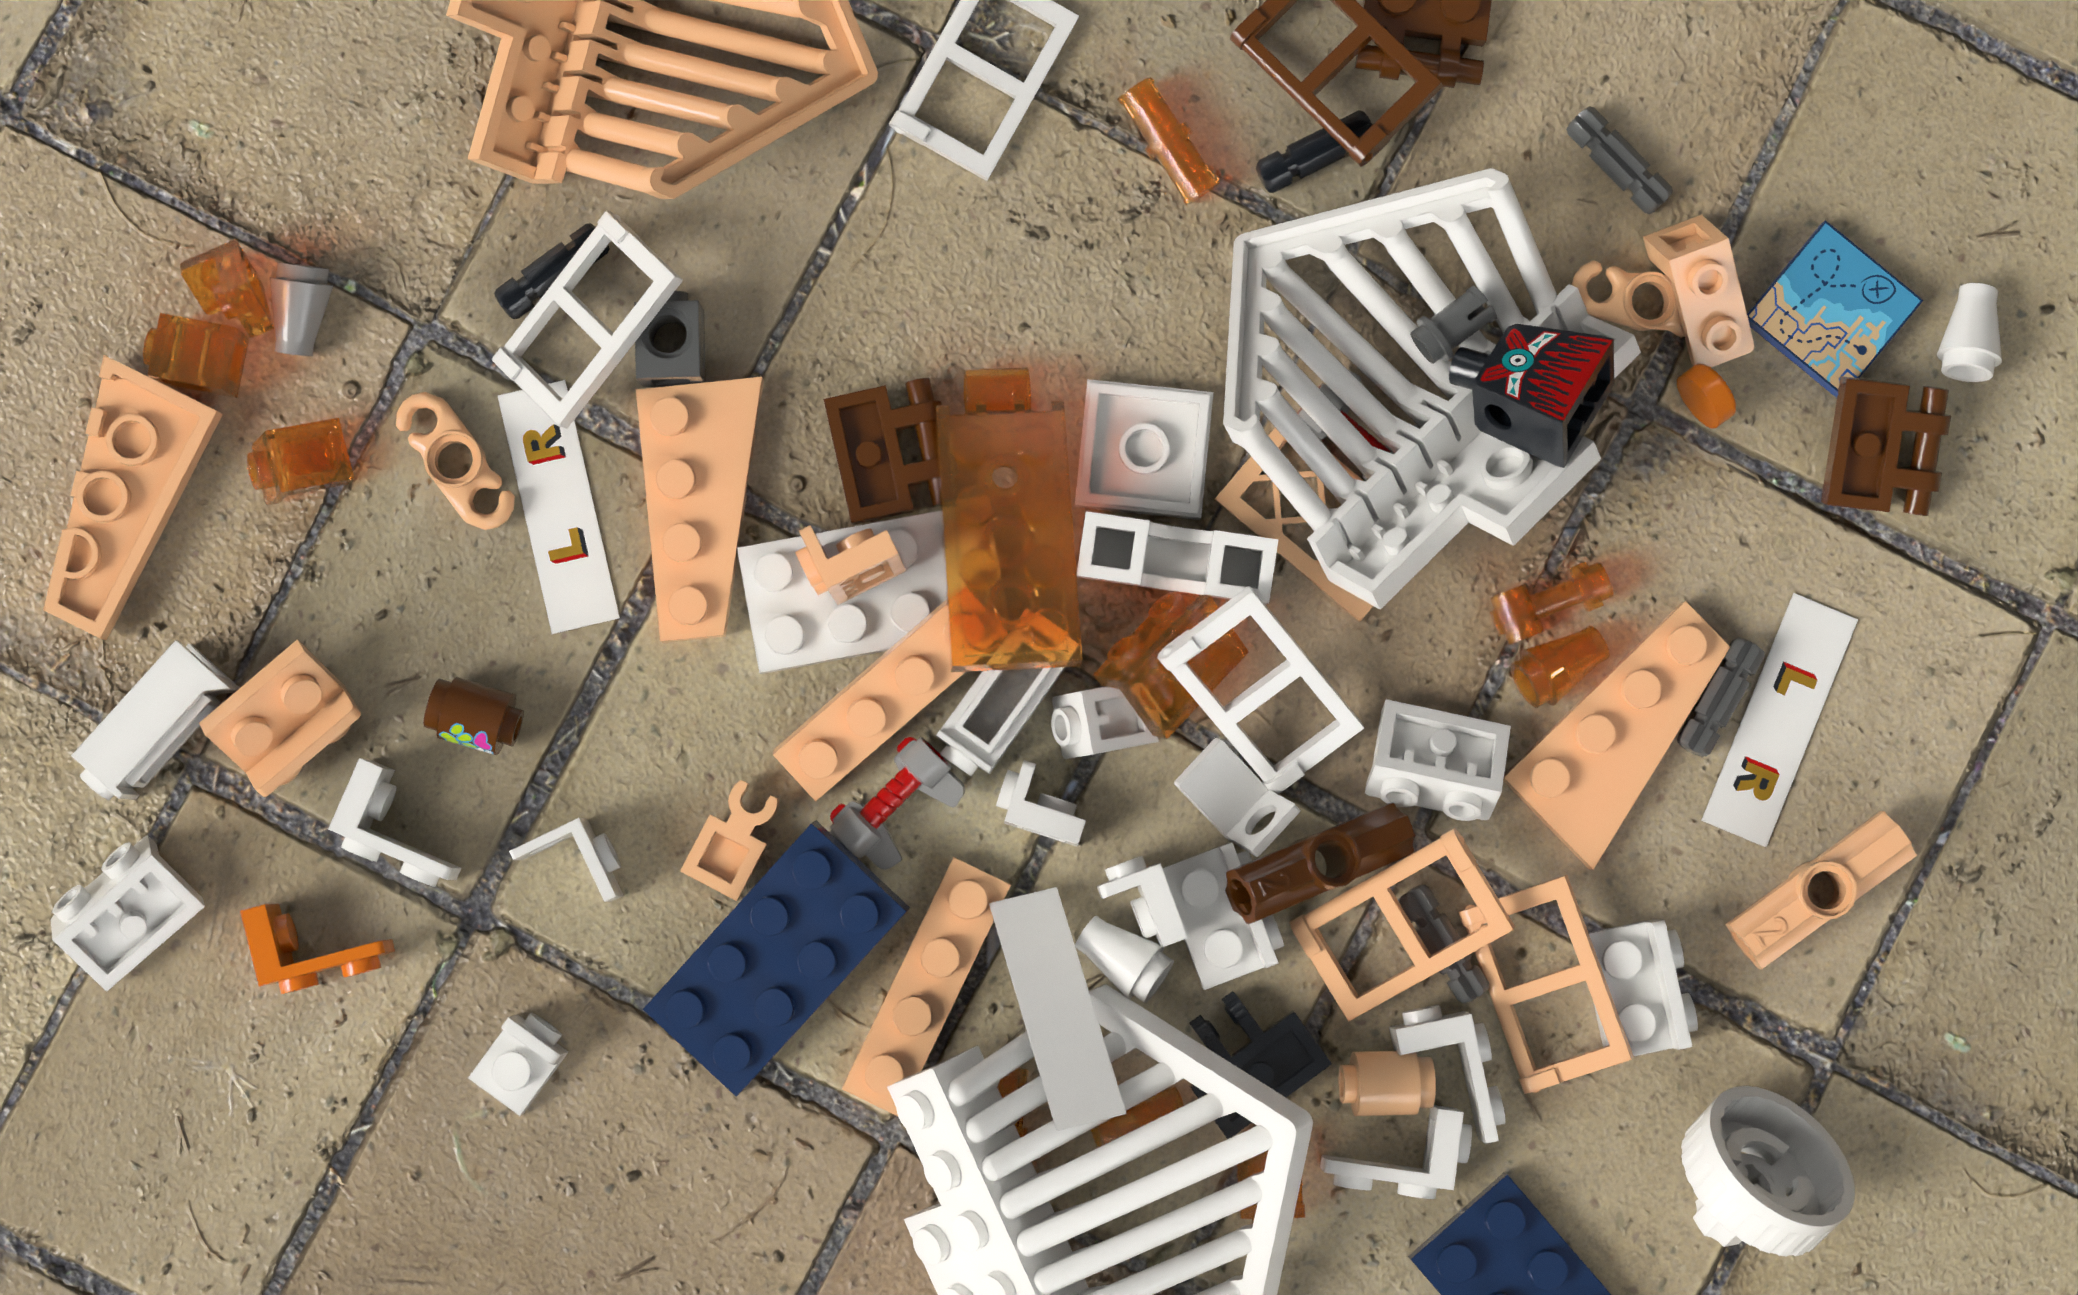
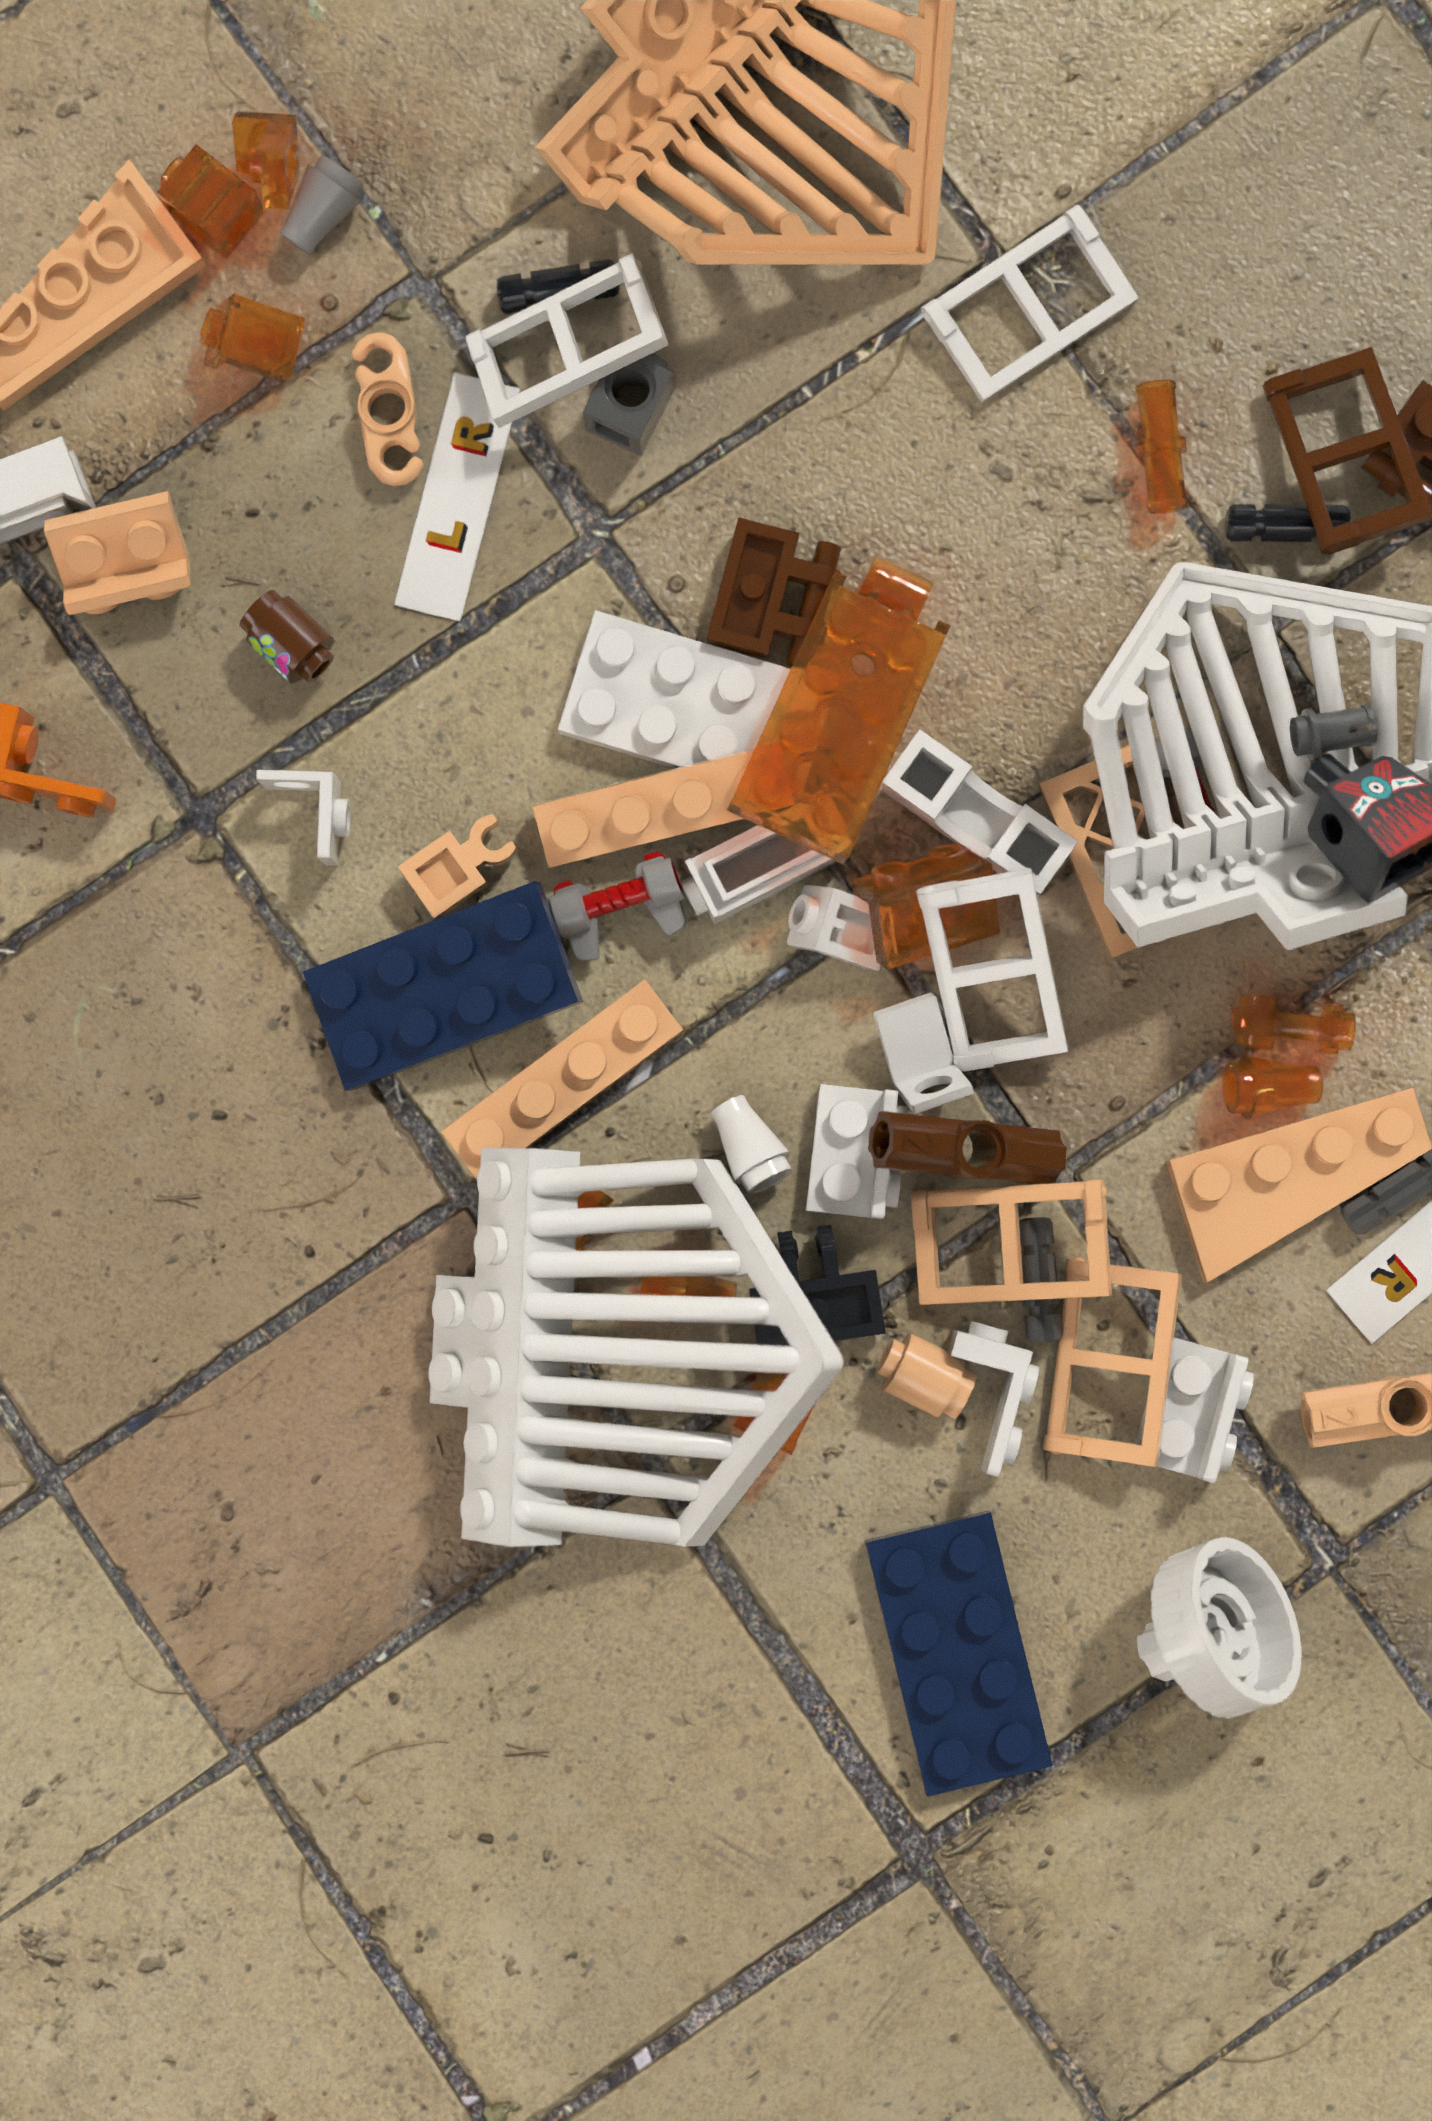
camera: 30 degrees right, 0 degrees up
(369, 798) = (158, 663): white bracket -> none
(520, 1061) = (172, 962): white bracket -> none
(696, 480) = (588, 535): light nougat wing -> none
(861, 564) = (686, 674): light nougat bracket -> none
(1048, 817) = (746, 987): white bracket -> none
(1057, 1009) = (666, 1156): white sticker -> none
(1144, 449) = (999, 707): white tile -> none
(1156, 907) = (797, 1112): white bracket -> none
(1438, 761) = (1118, 1116): white bracket -> none
(1446, 1144) = (949, 1458): white bracket -> none

